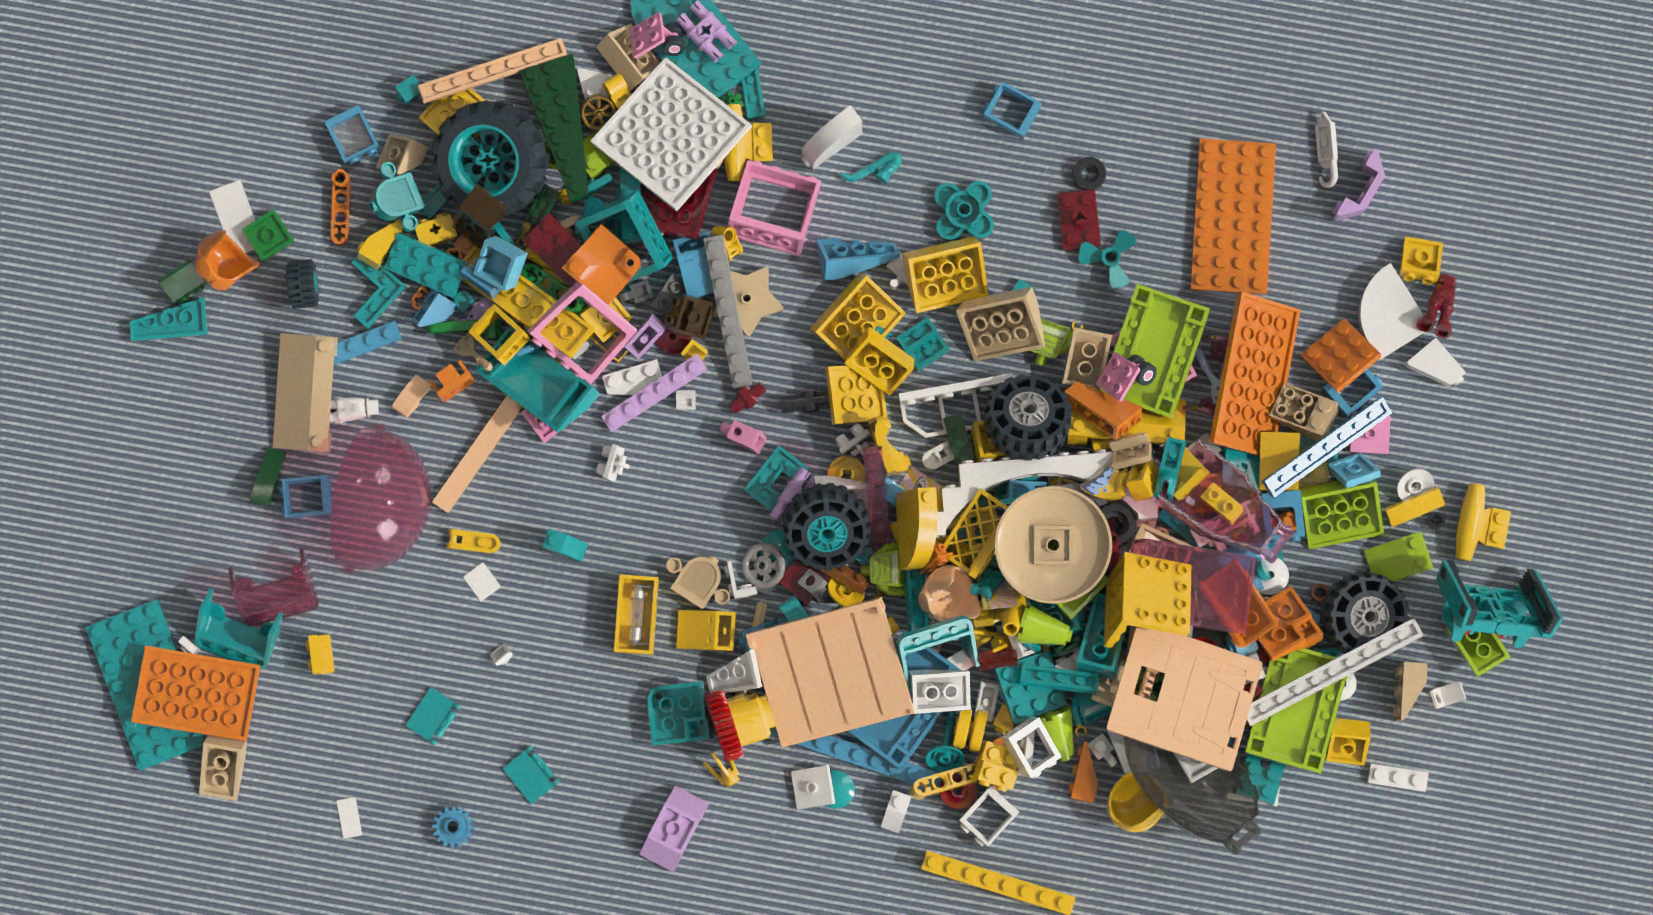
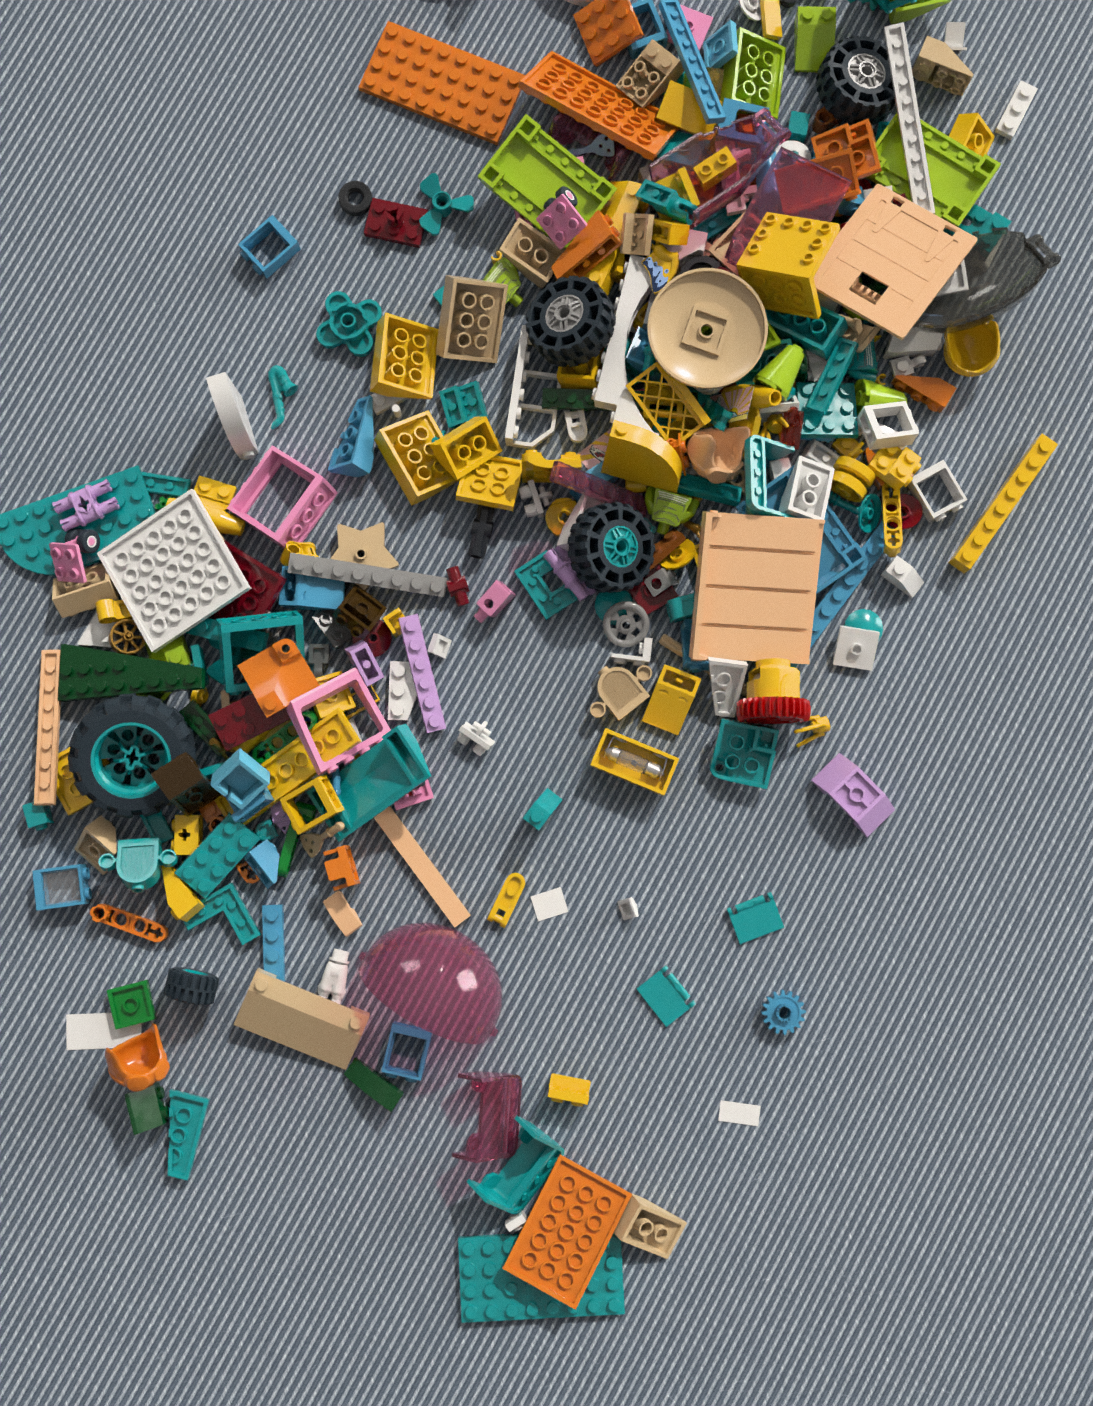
camera: 75 degrees left, 0 degrees up
(1303, 570) = (798, 125): none -> teal brick

